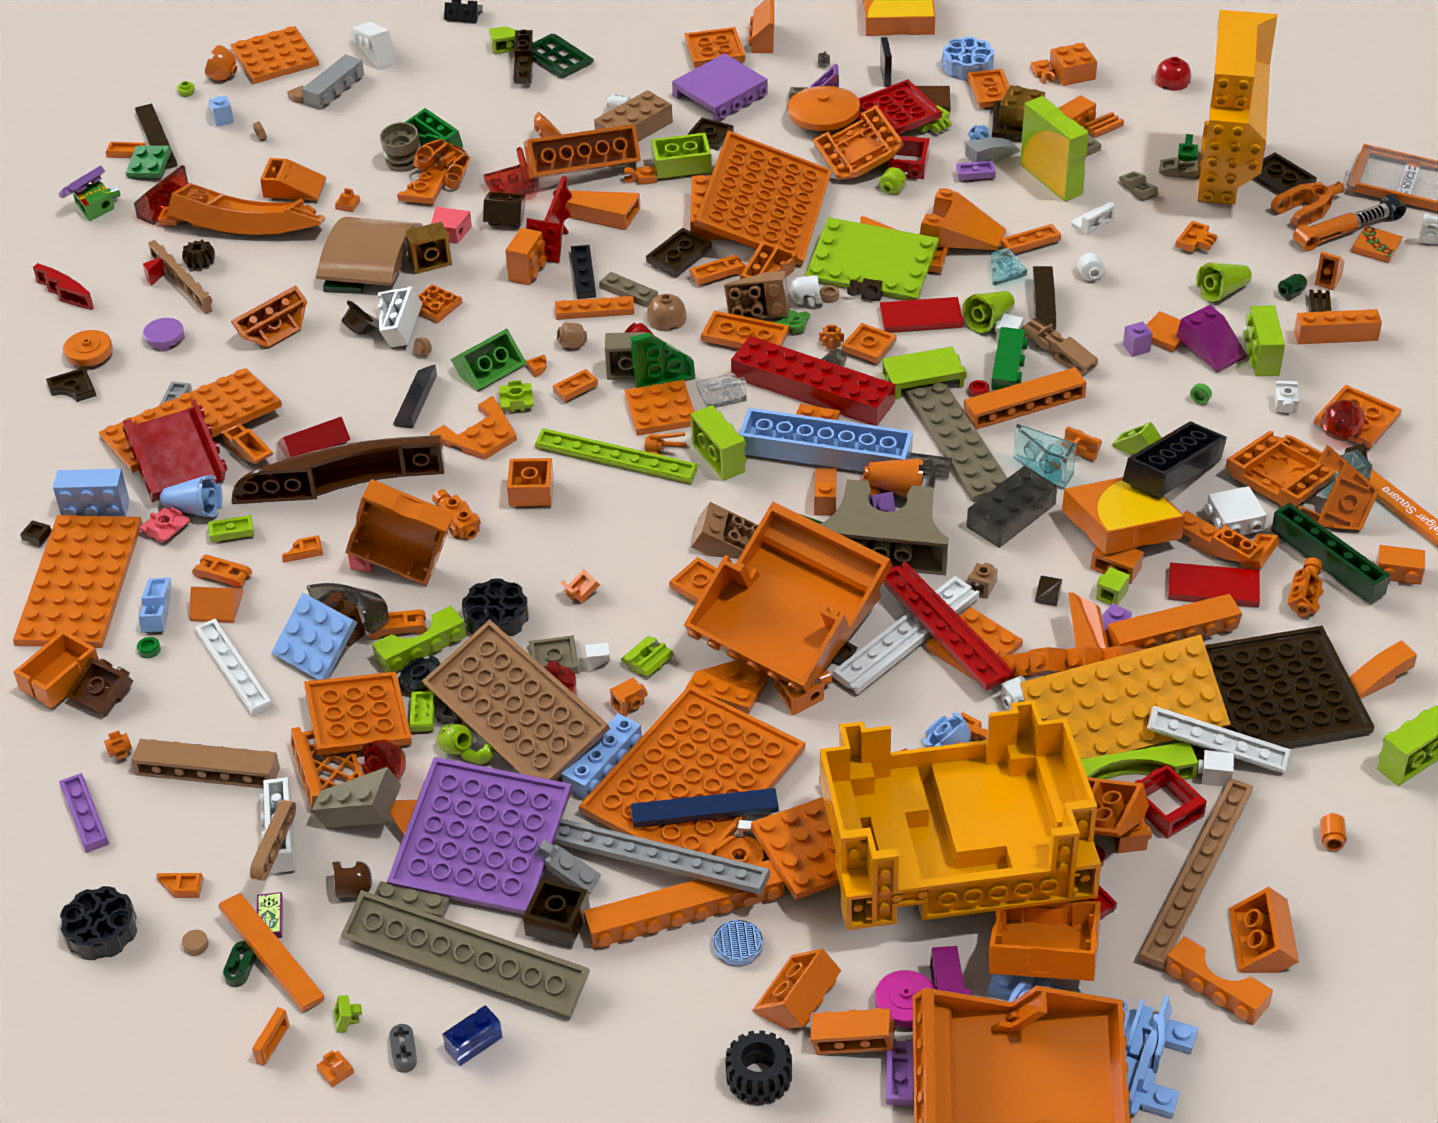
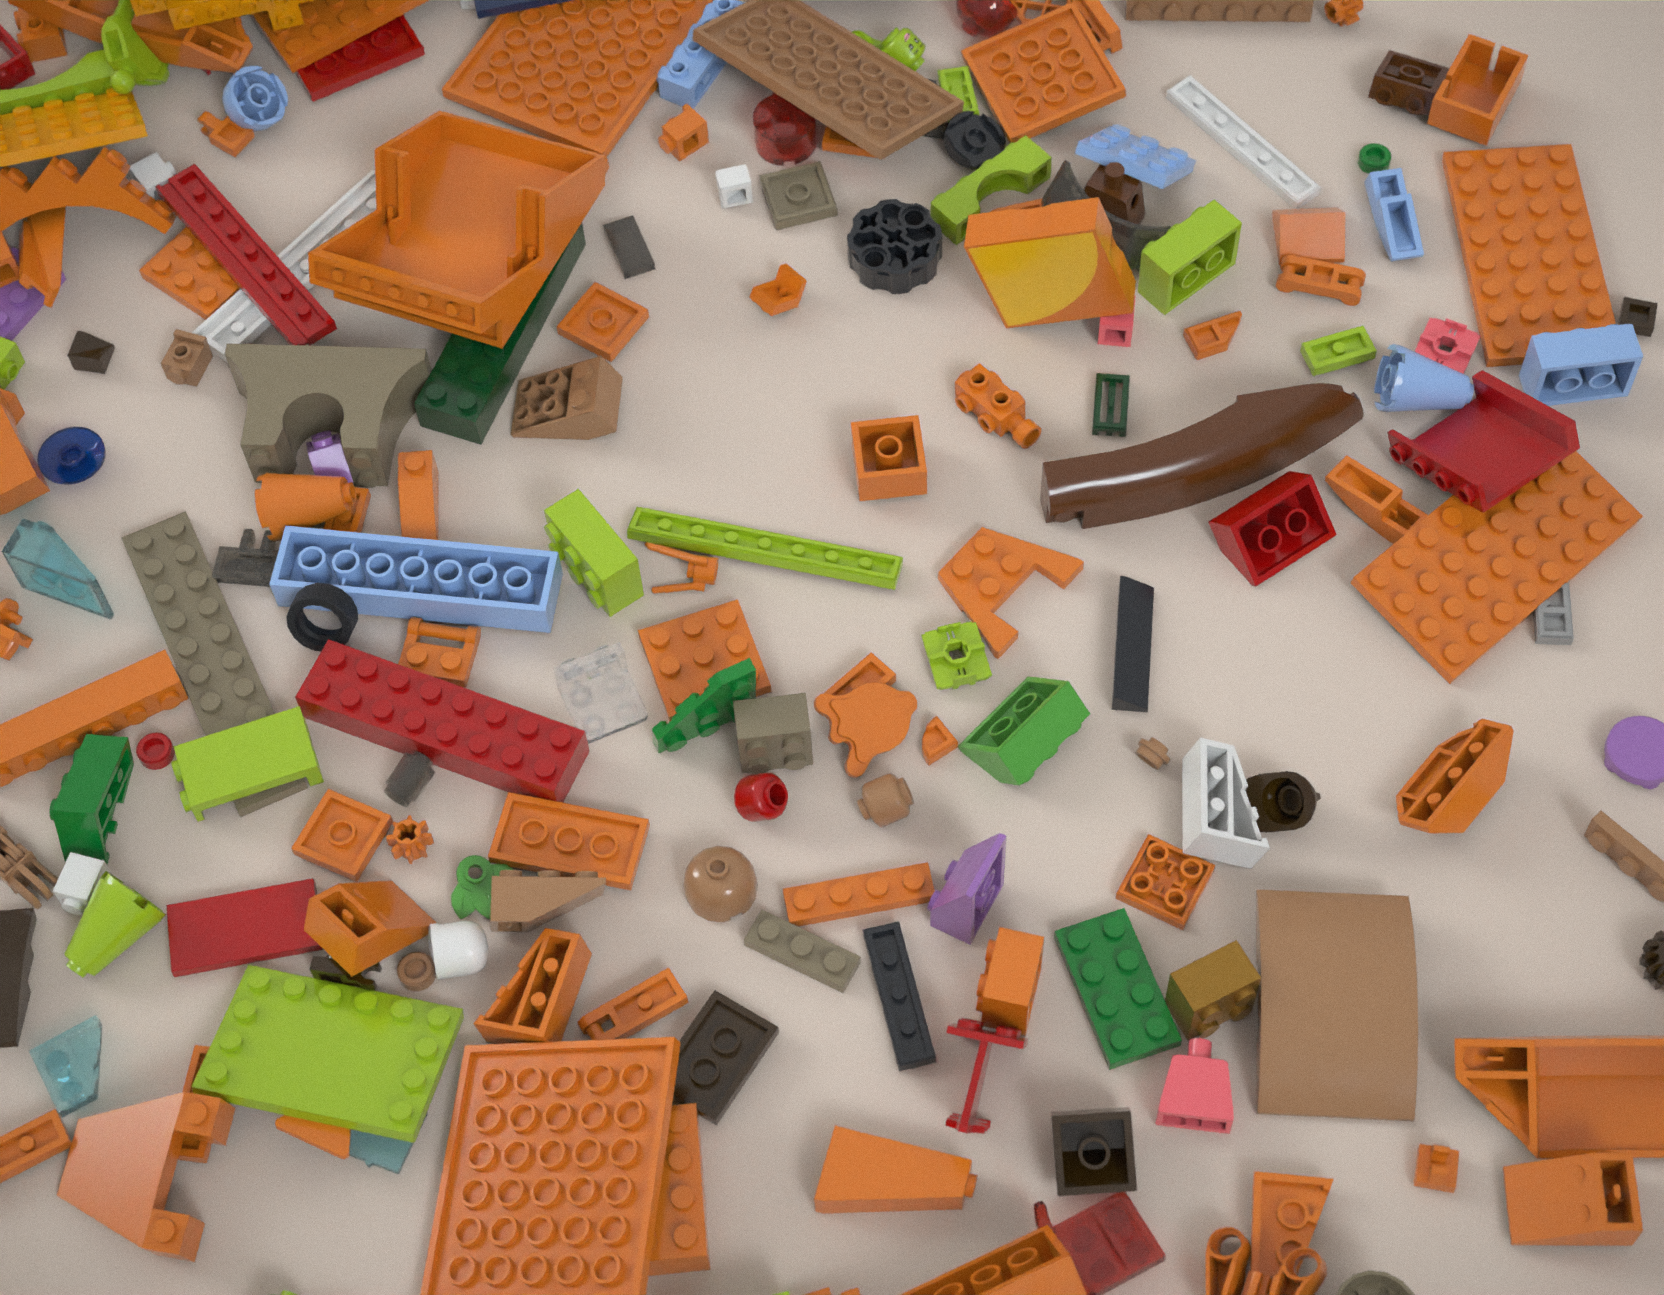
camera: 175 degrees right, 15 degrees up
(302, 567) = (1189, 256): none -> lime brick
(473, 267) = (1117, 988): none -> green plate
(535, 283) = (969, 889): none -> medium lavender slope
(573, 367) = (867, 719): none -> orange tile
(647, 656) = (681, 199): lime piece -> none
(676, 631) = (629, 247): none -> clear smoke tile
(850, 293) = (364, 922): none -> orange slope
(882, 418) = (328, 597): none -> black tyre
(1011, 506) = (125, 487): clear smoke brick -> none
(1050, 528) = (64, 447): none -> clear blue dish

